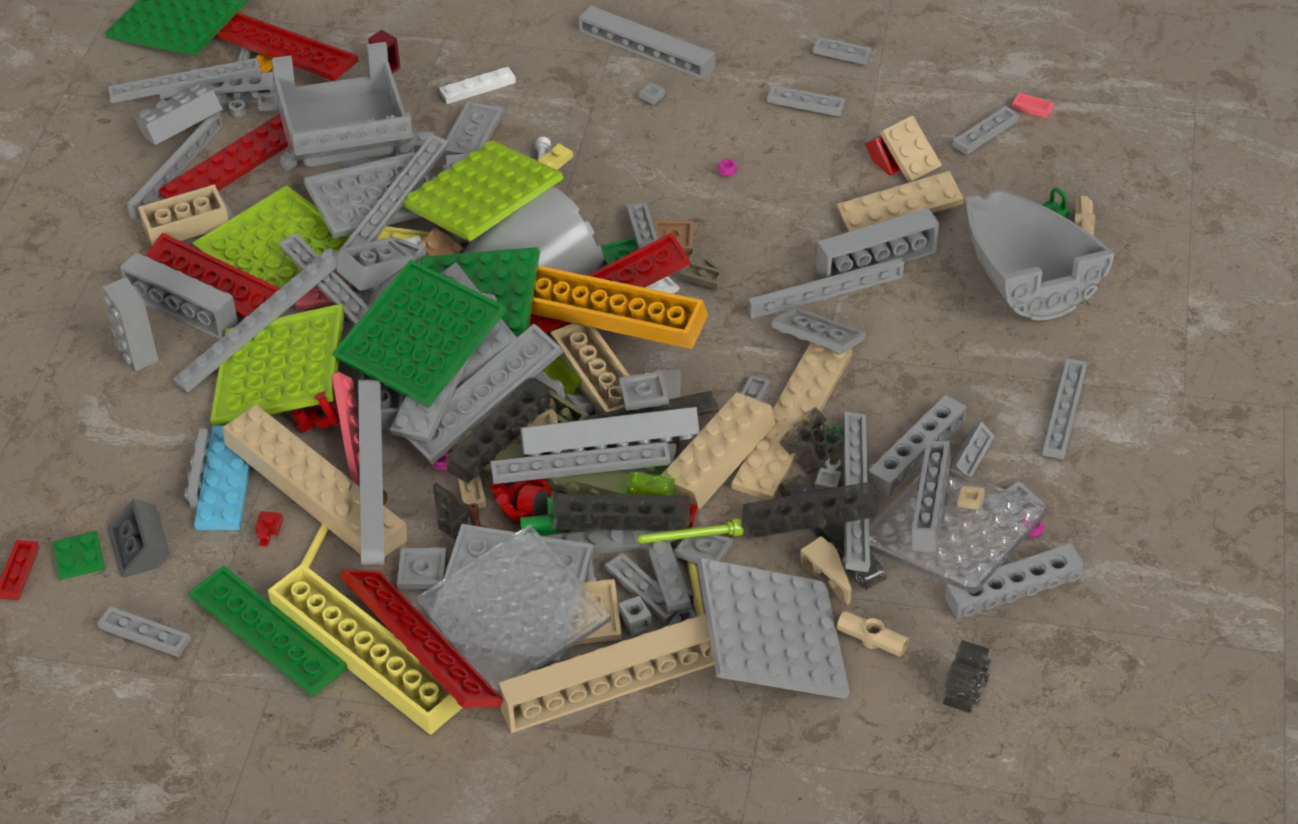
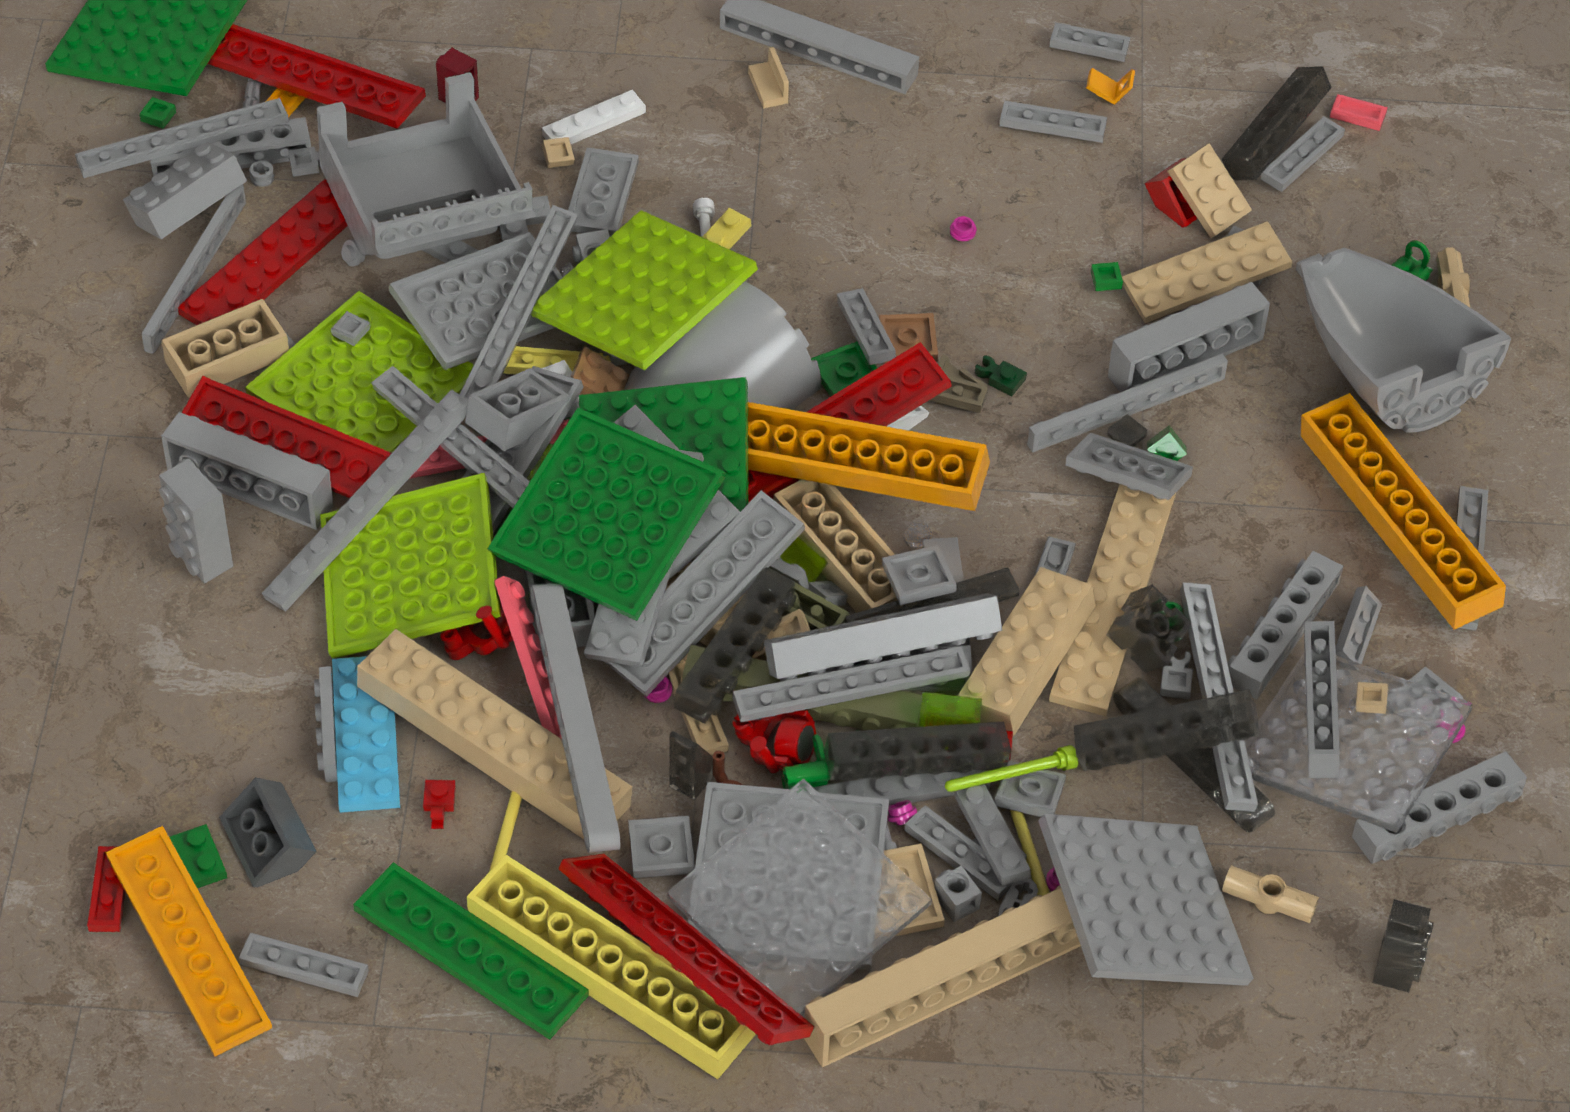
camera: 10 degrees left, 5 degrees up
(64, 609) = (189, 941): none -> light orange plate
(174, 65) = (157, 112): none -> green plate
(274, 208) = (350, 328): none -> light grey tile
(446, 103) = (558, 152): none -> tan plate
(604, 556) = (901, 812): none -> dark pink plate
(607, 66) = (770, 81): none -> tan panel
(652, 93) = (840, 121): light grey plate -> none
(738, 267) = (1003, 377): none -> dark green plate
(822, 307) = (1127, 431): none -> clear smoke plate
(824, 564) = (1194, 803): tan slope -> none
(826, 203) = (1106, 276): none -> green plate
(849, 80) = (1107, 87): none -> light orange bracket
(851, 317) = (1167, 444): none -> panel
(968, 108) = (1276, 123): none -> clear smoke brick
(1018, 372) = (1403, 511): none -> light orange brick

